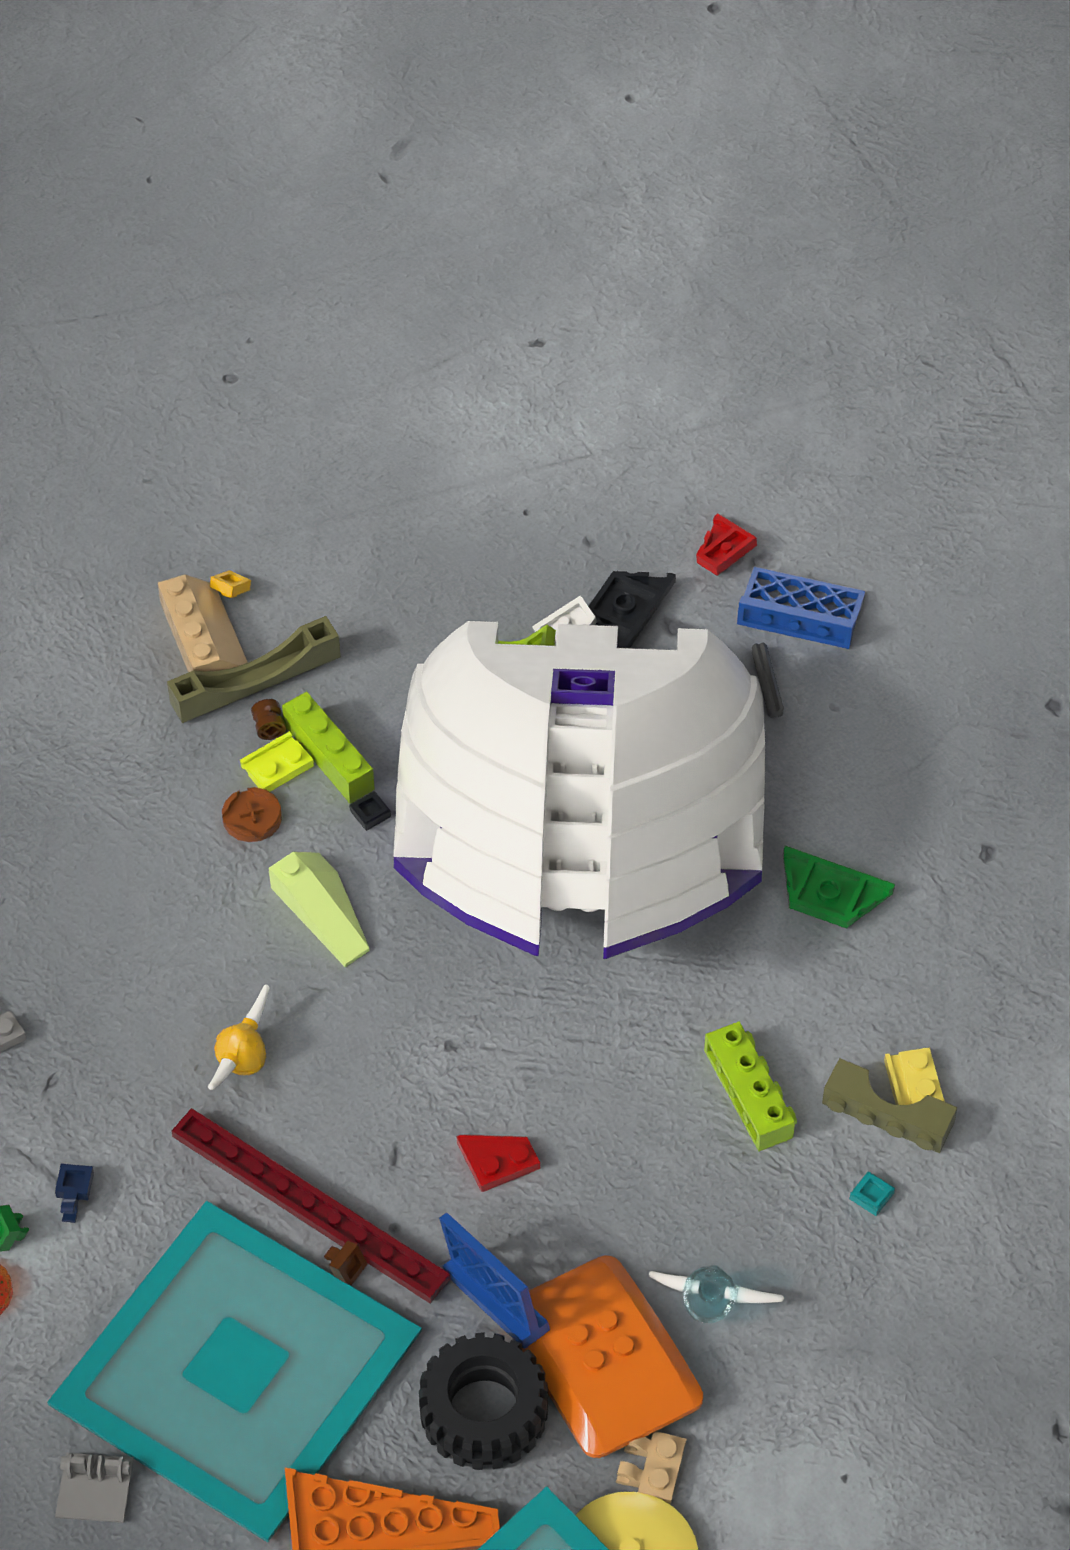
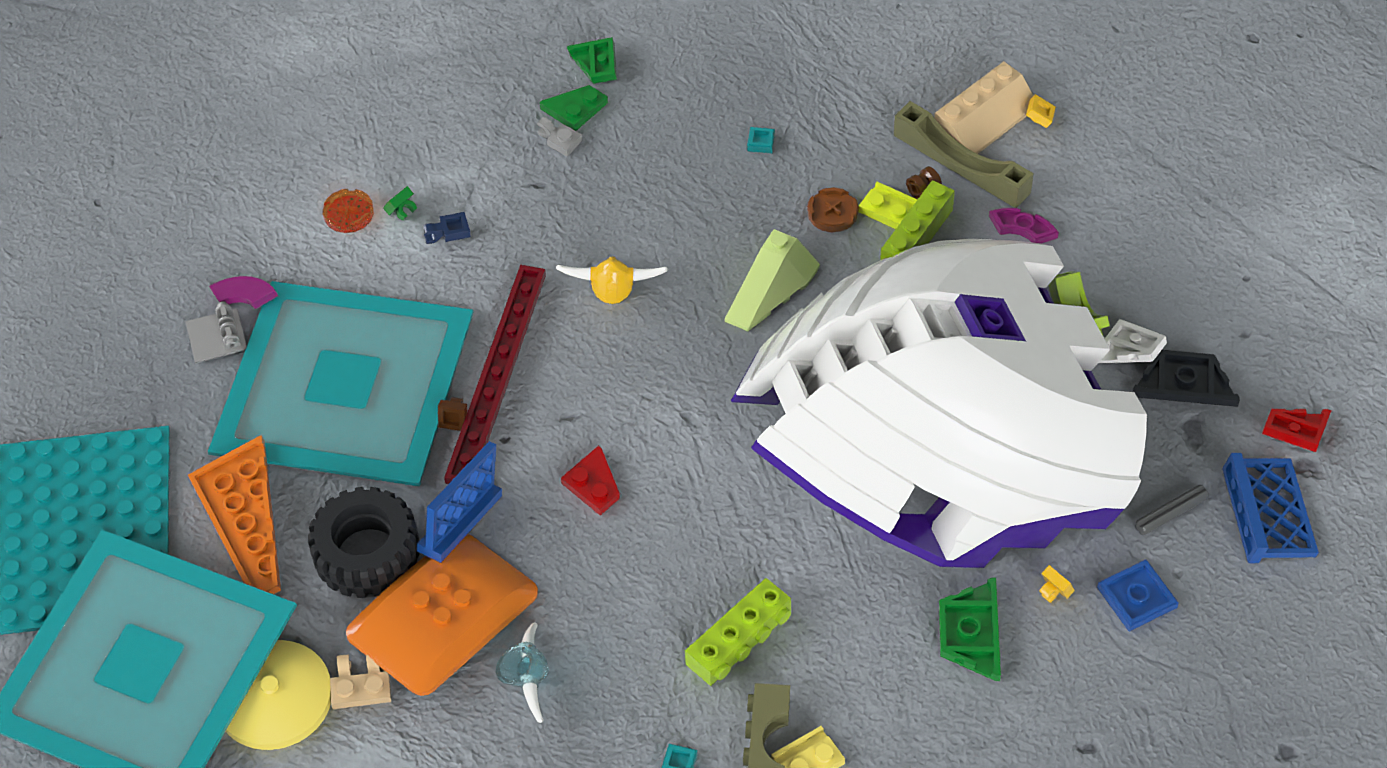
camera: 70 degrees right, 0 degrees up
(45, 1436) = (243, 290): none -> magenta tile
(116, 844) = (761, 140): none -> teal tile
(364, 658) = (1020, 223): none -> magenta tile
(813, 802) = (1055, 584): none -> yellow tile
(847, 746) = (1137, 595): none -> blue tile

